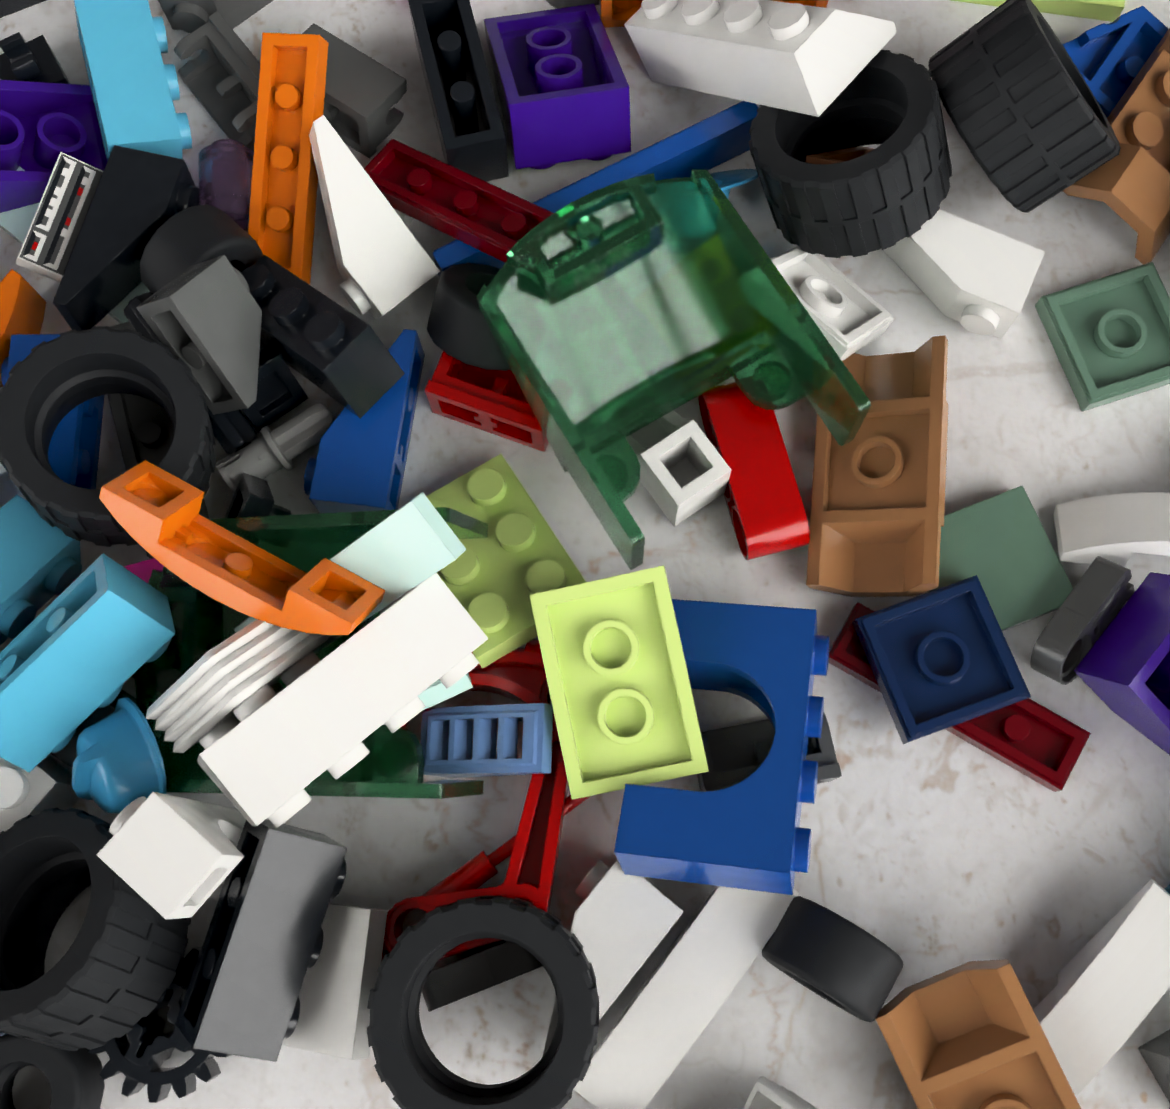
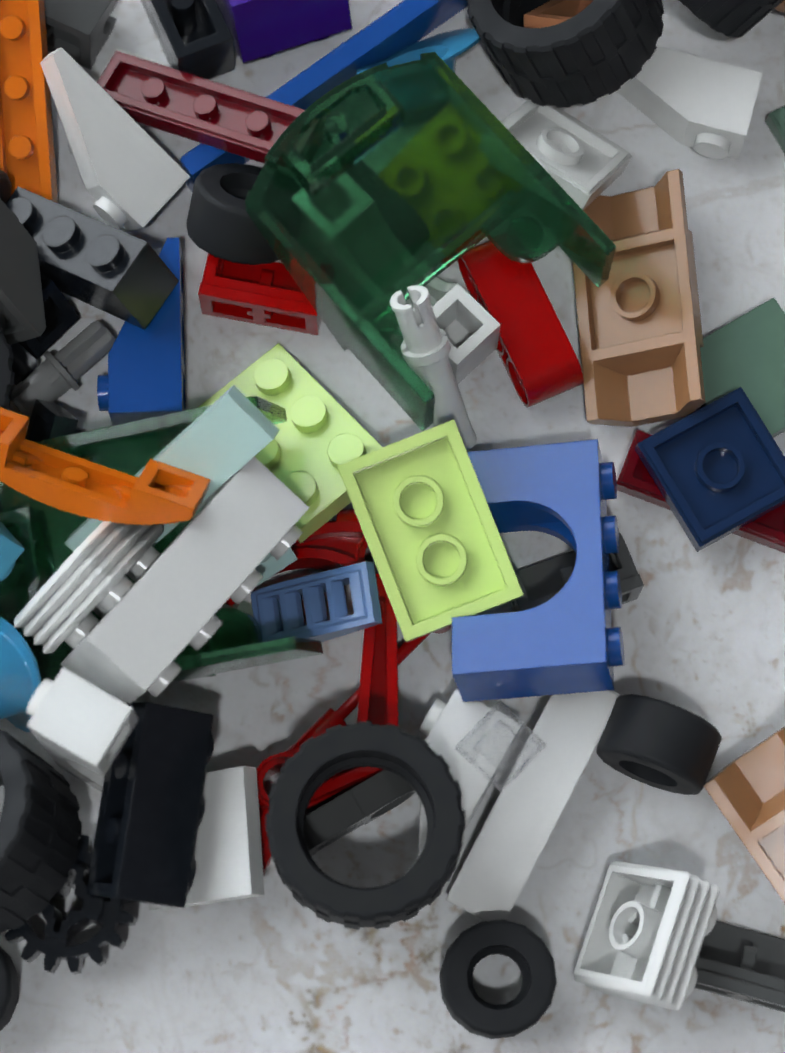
camera: 15 degrees left, 0 degrees up
(648, 486) = (427, 350): none -> white pin
(656, 935) = (500, 746): none -> clear tile

